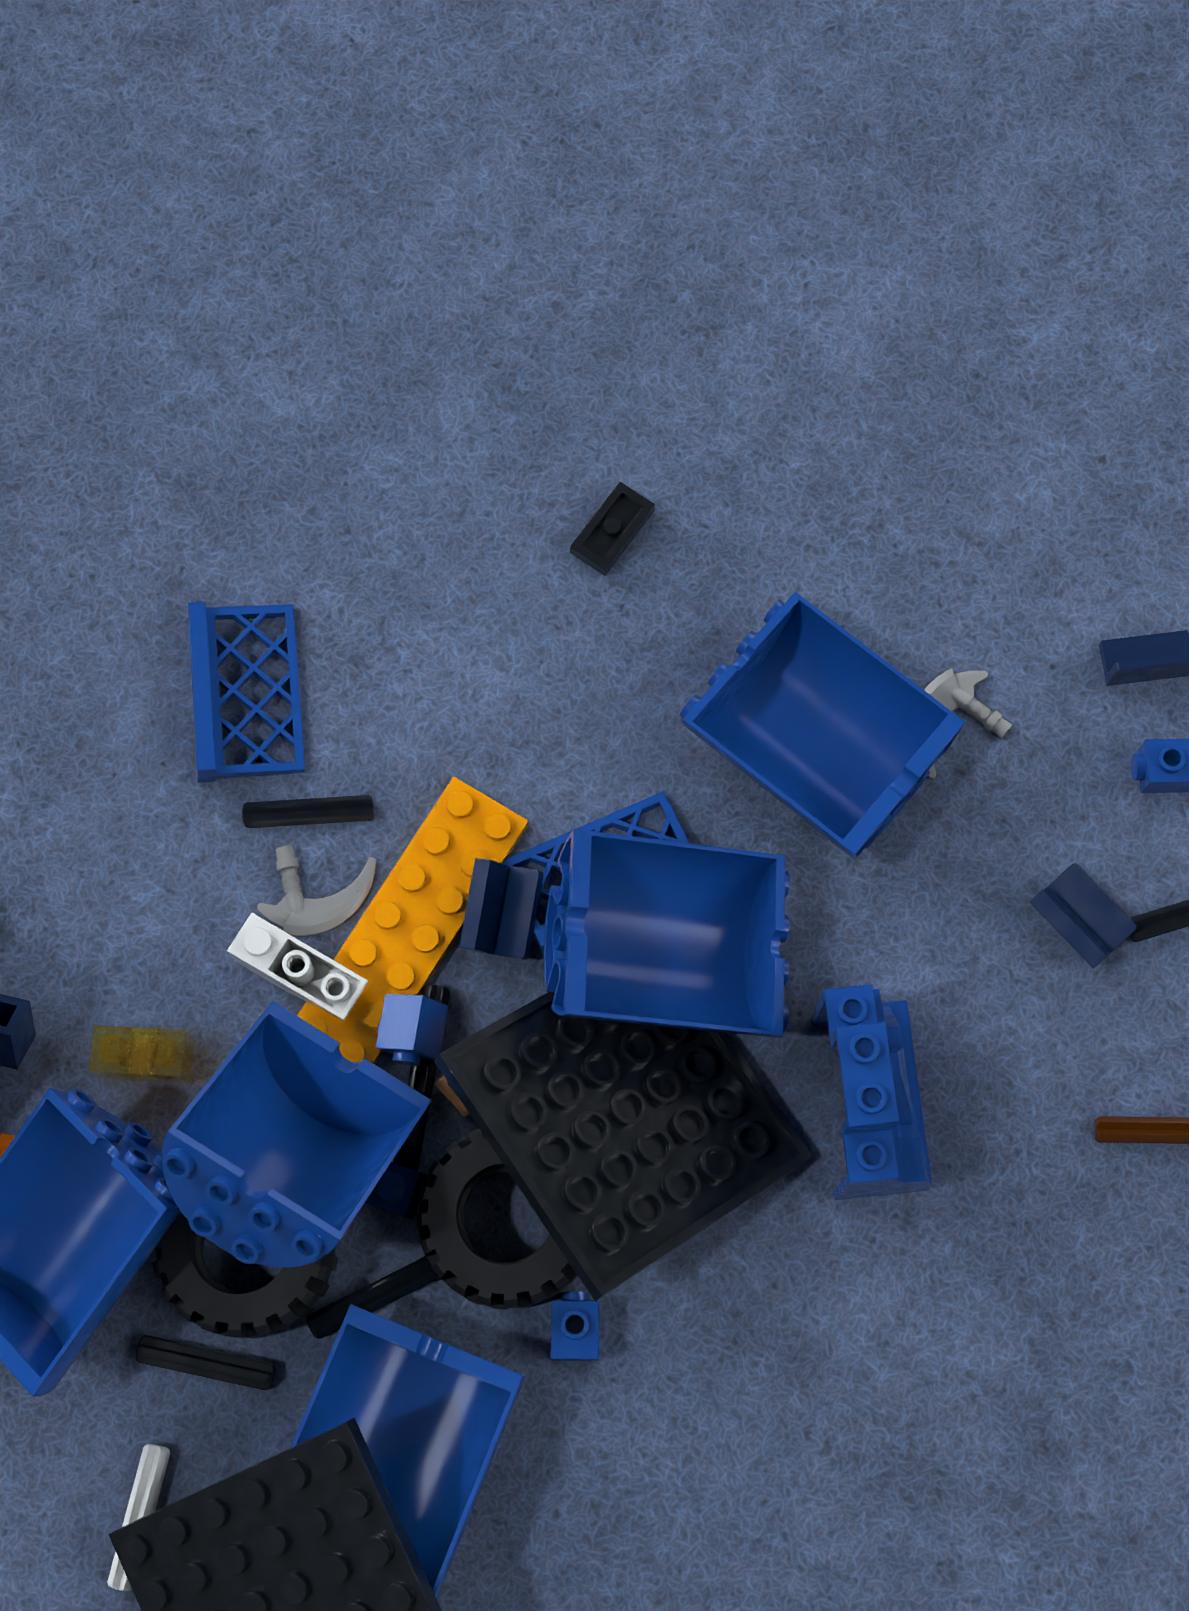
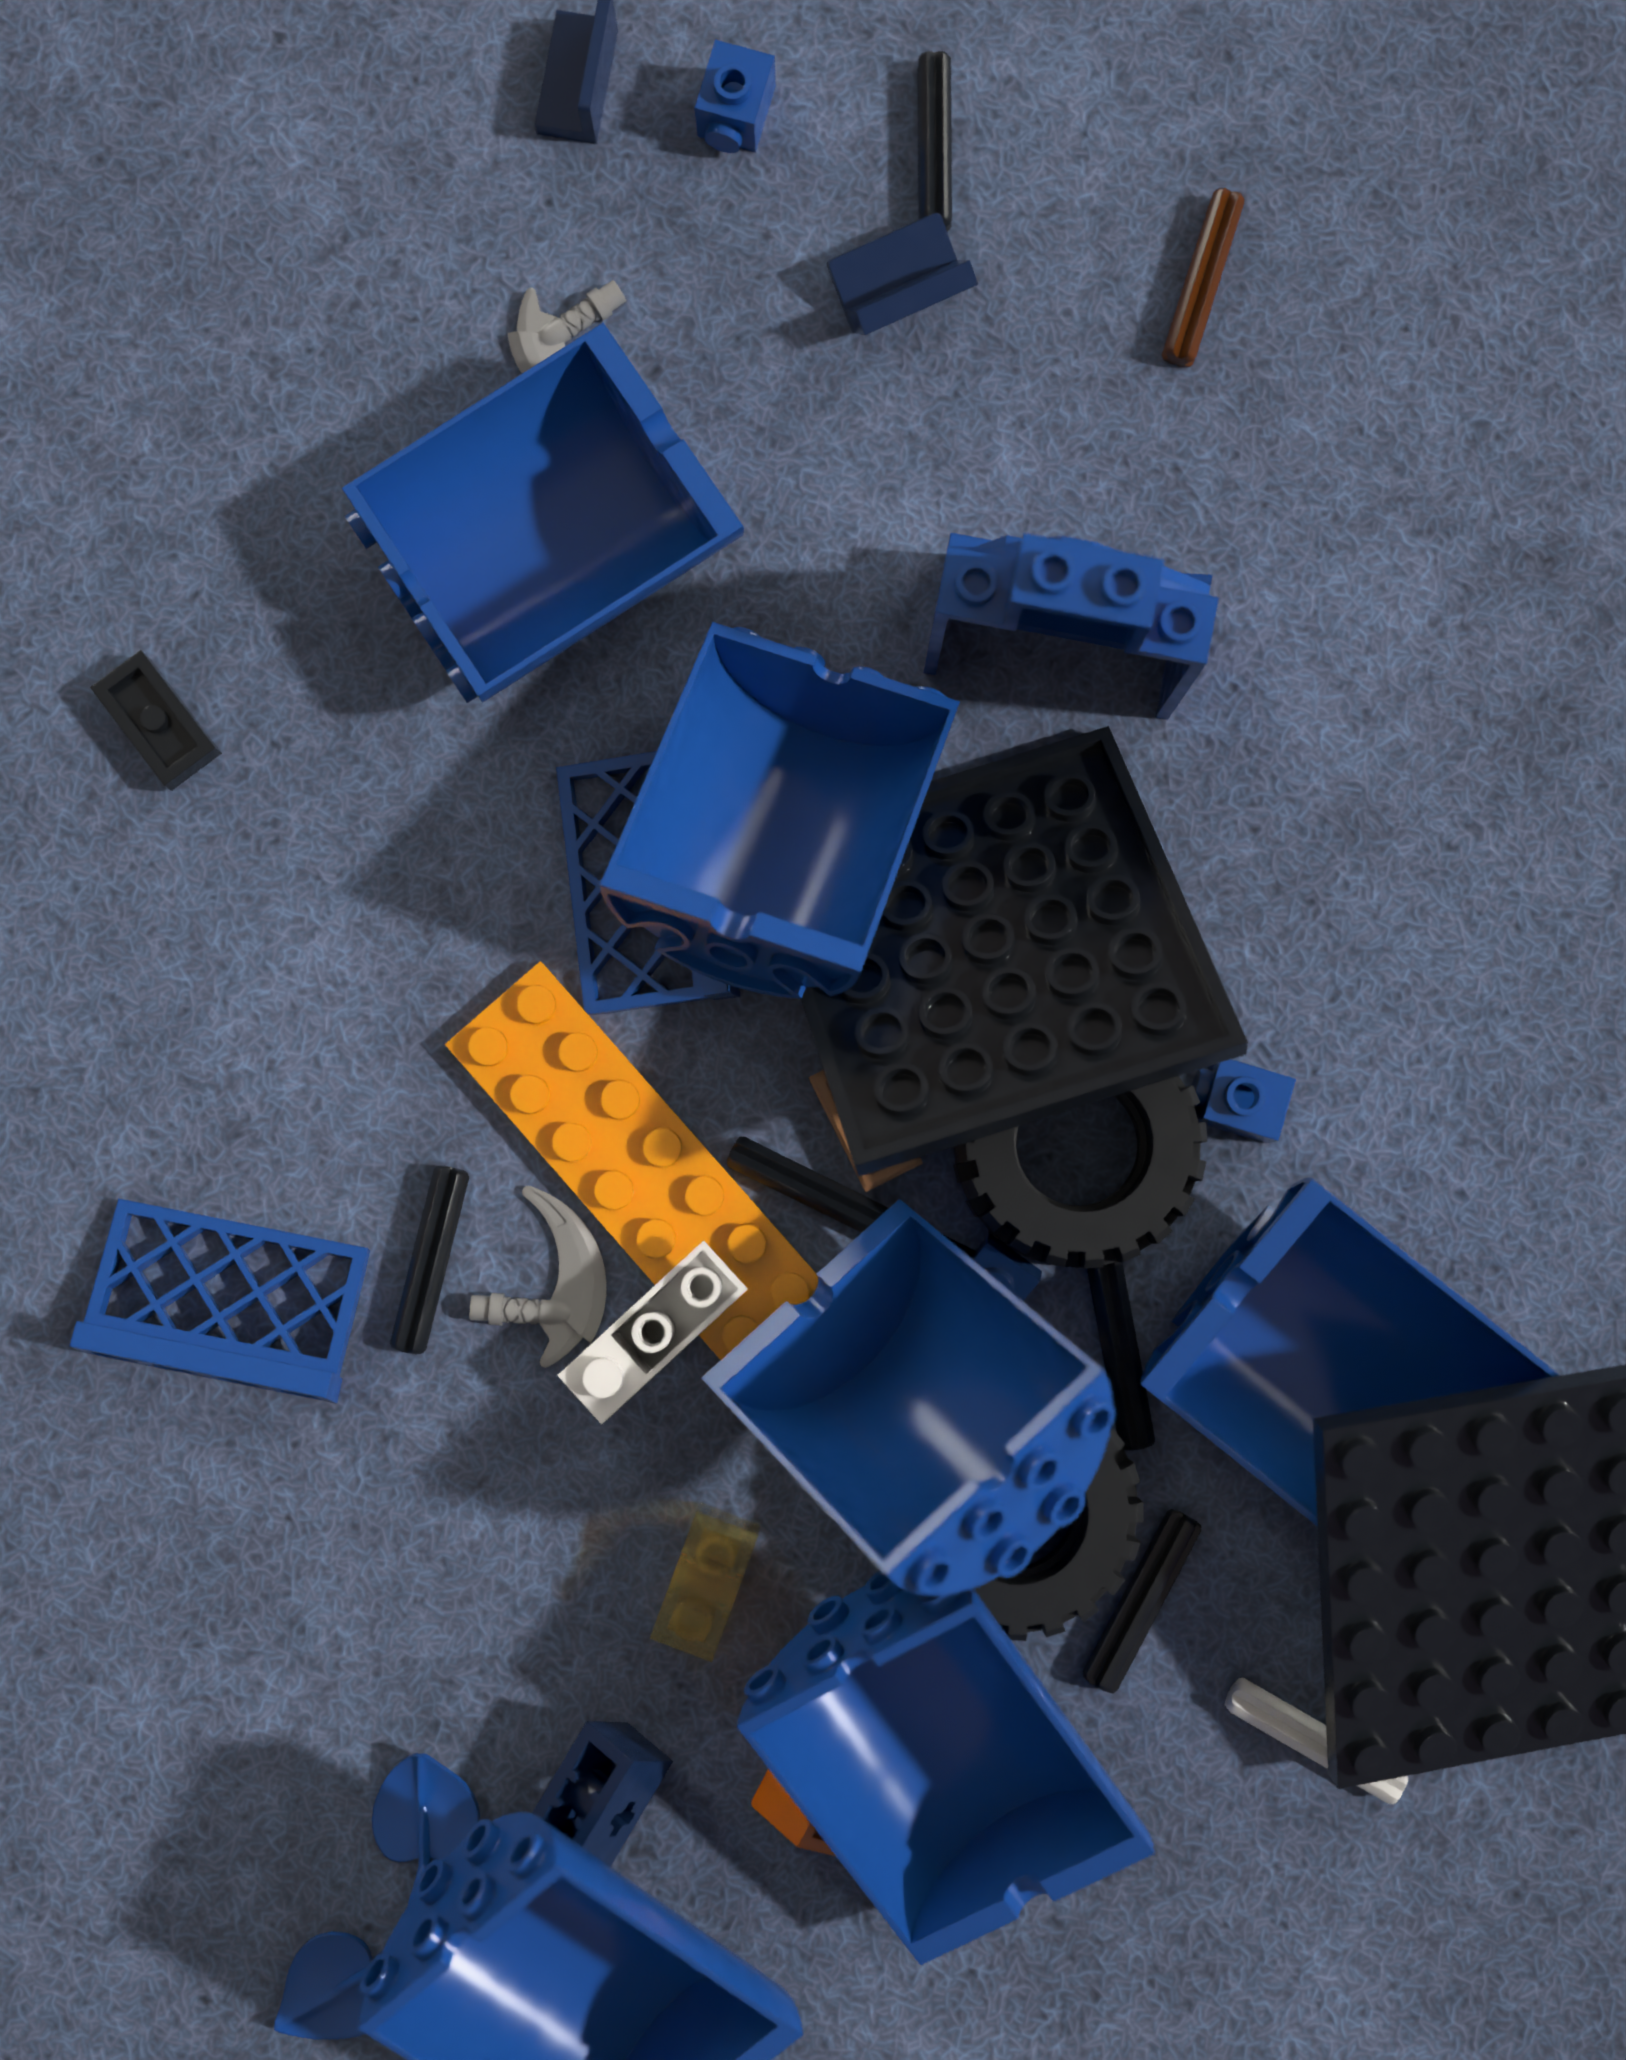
camera: 75 degrees left, 10 degrees up
(411, 1028) = (786, 1200): blue brick -> none
(501, 909) = (656, 1031): dark blue panel -> none

